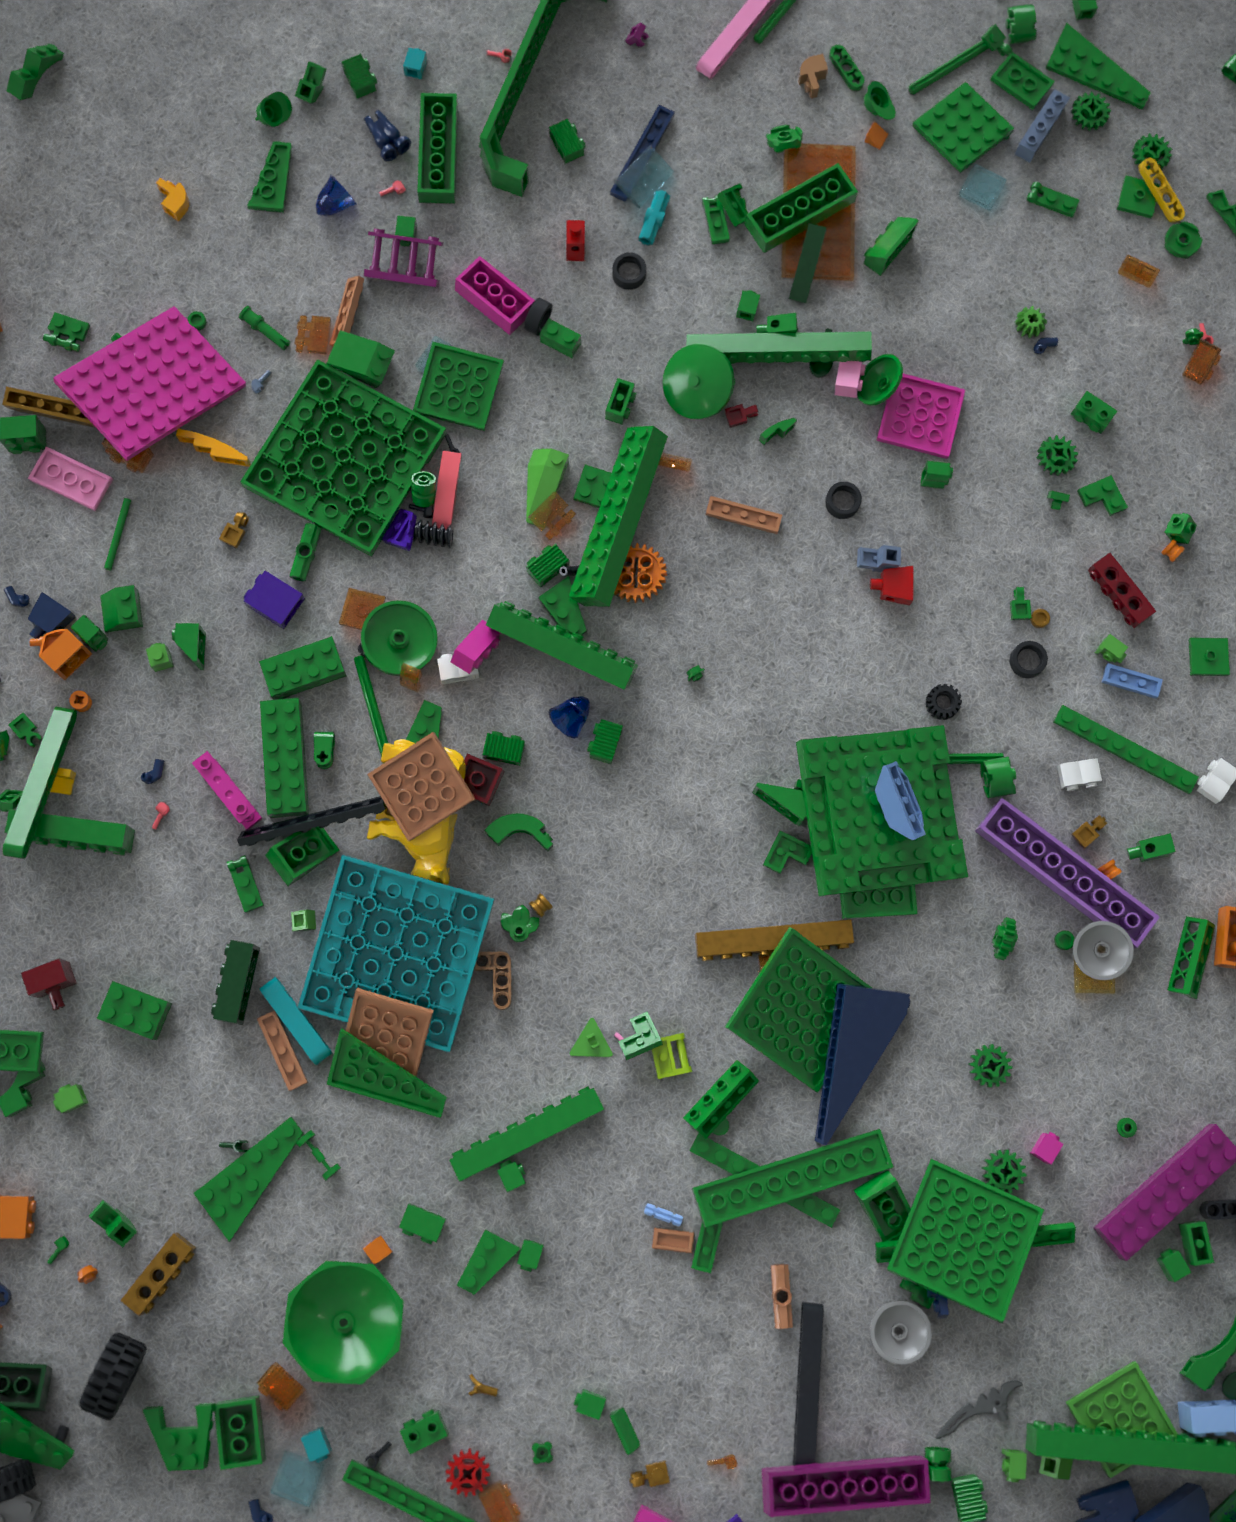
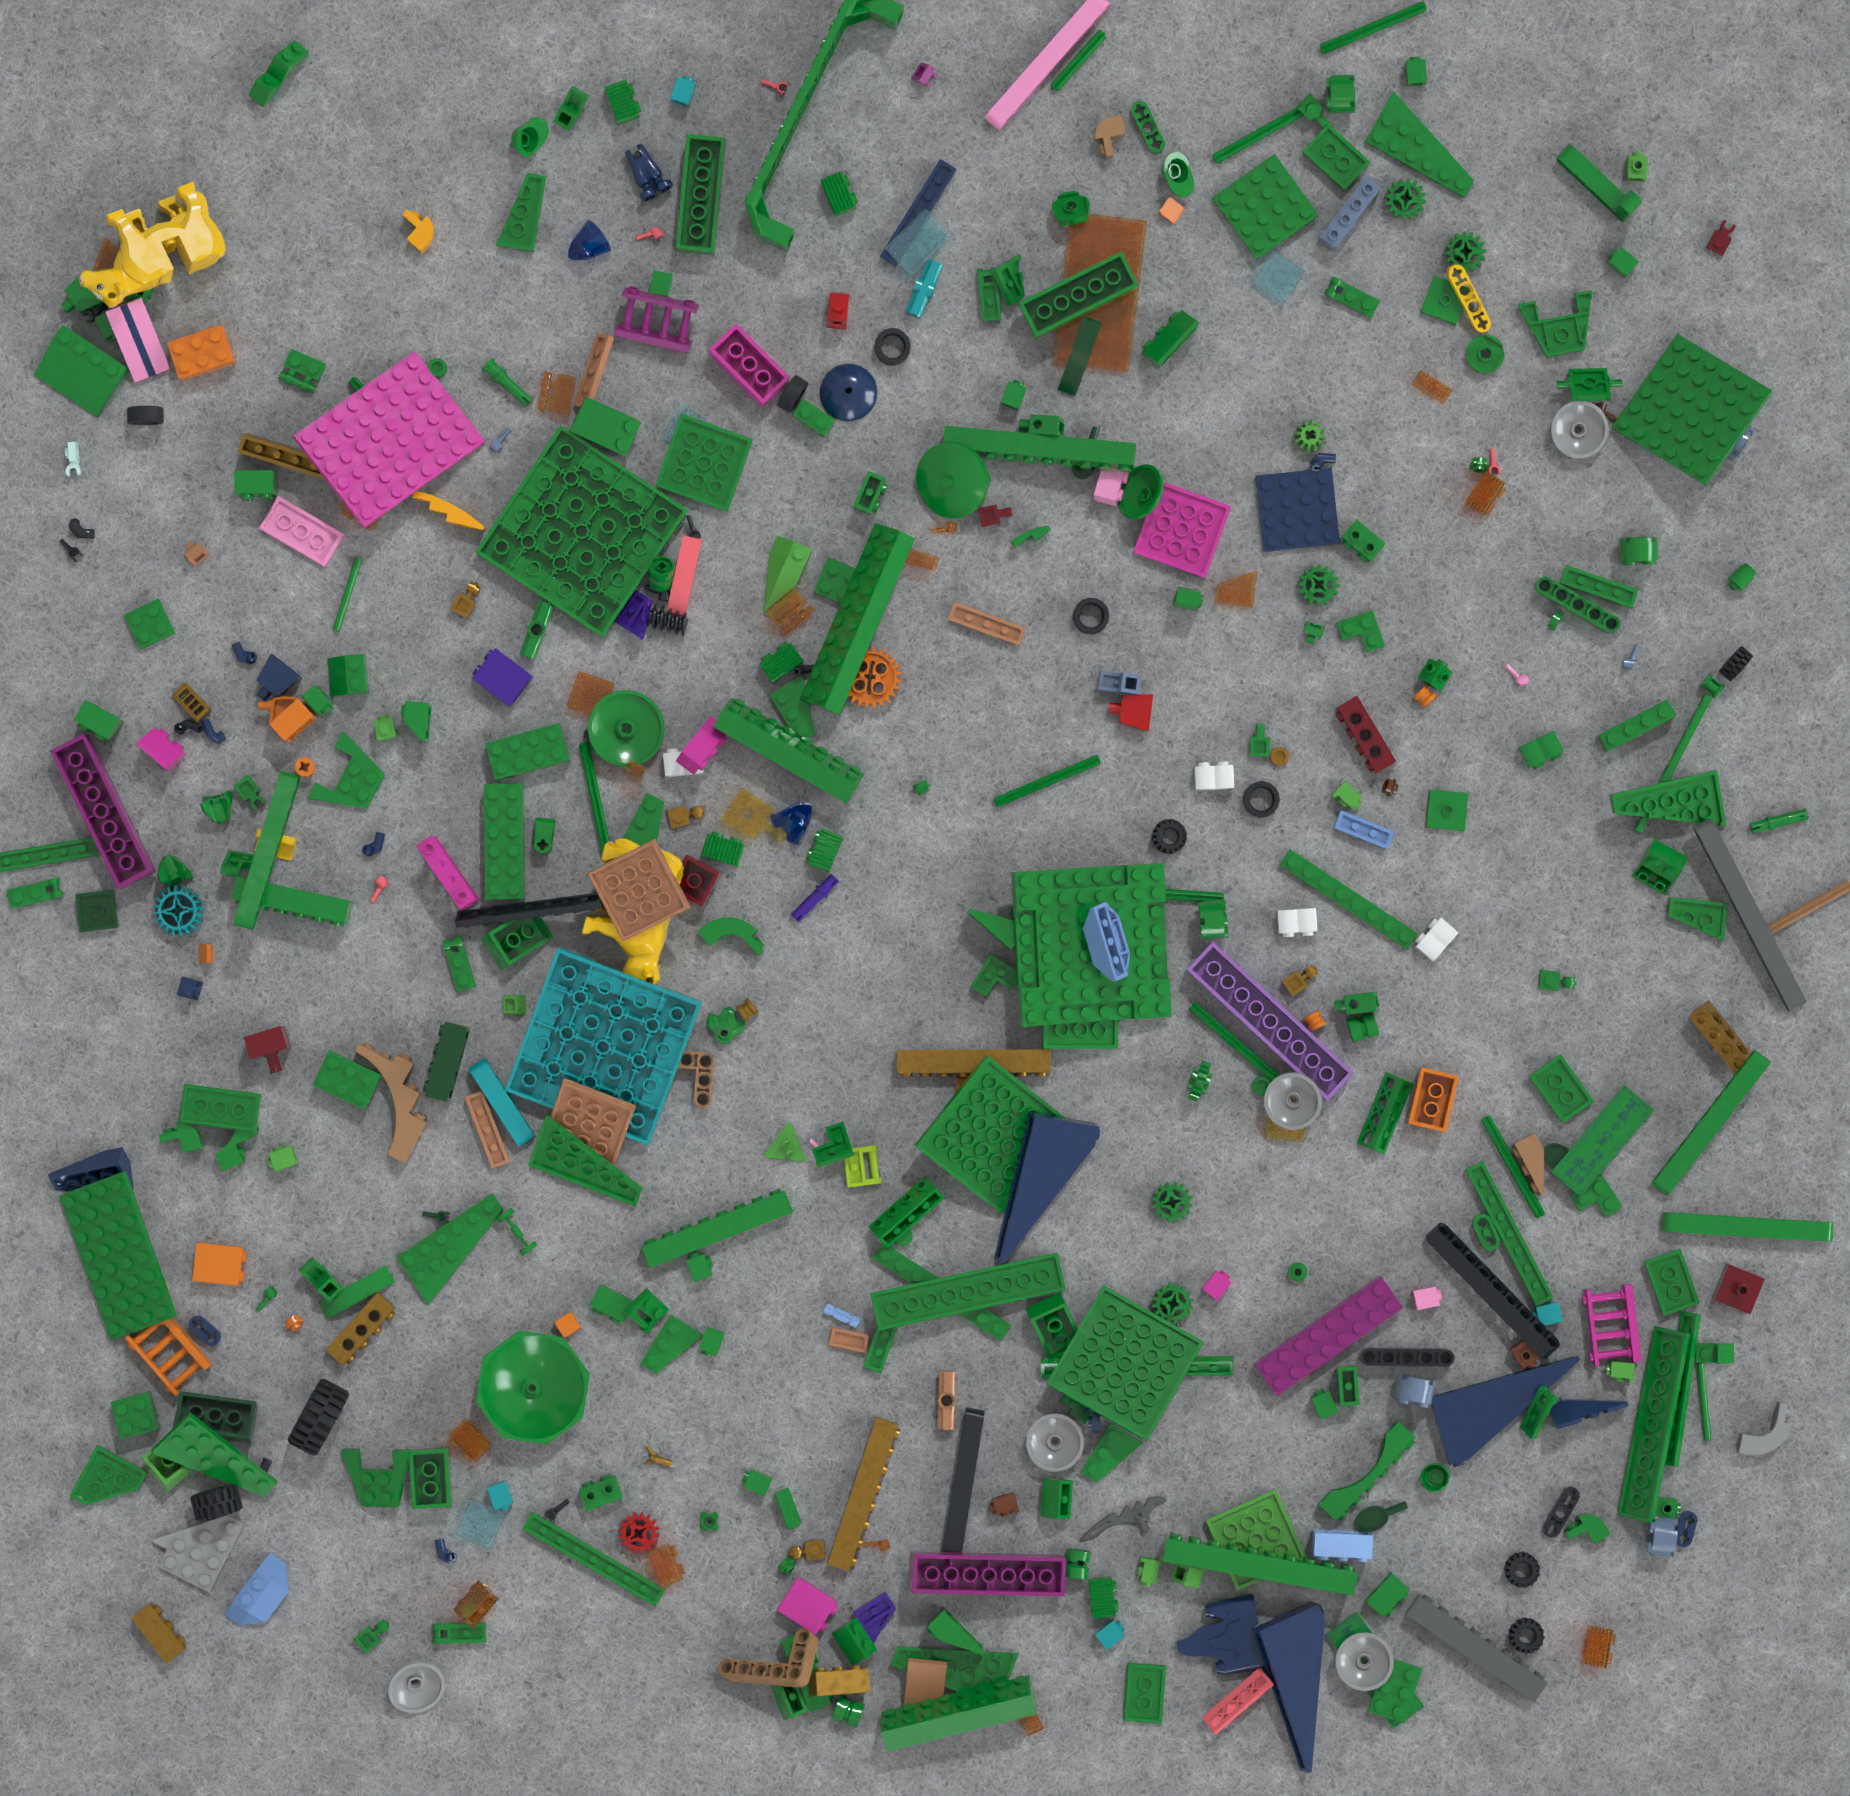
camera: 10 degrees right, 10 degrees up
(135, 712) = (357, 782): none -> green wing
(154, 1234) = (357, 1292): none -> green slope
(199, 1054) = (395, 1072): none -> medium nougat arch
(459, 721) = (680, 817): none -> pearl gold plate
(461, 1220) = (650, 1306): none -> green plate
(530, 724) = (752, 826): none -> clear yellow plate
(593, 325) = (848, 406): none -> dark blue dish
(604, 783) = (818, 894): none -> dark purple pin
(629, 1495) = (786, 1566): none -> green plate
(699, 431) = (951, 528): none -> clear orange hand
(702, 1409) = (862, 1494): none -> pearl gold brick
(817, 658) = (1047, 780): none -> green axle
(854, 1404) = (1004, 1504): none -> copper brick
(908, 1393) = (1056, 1498): none -> green brick
(956, 1337) = (1109, 1452): none -> green wing
(980, 468) = (1238, 591): none -> clear orange wing
(980, 642) = (1213, 777): none -> white brick
(1027, 390) = (1297, 510): none -> dark blue plate
(1031, 898) = (1233, 1041): none -> green axle
(1151, 638) = (1390, 787): none -> reddish brown plate
(1160, 872) = (1362, 1027): none -> green wheel

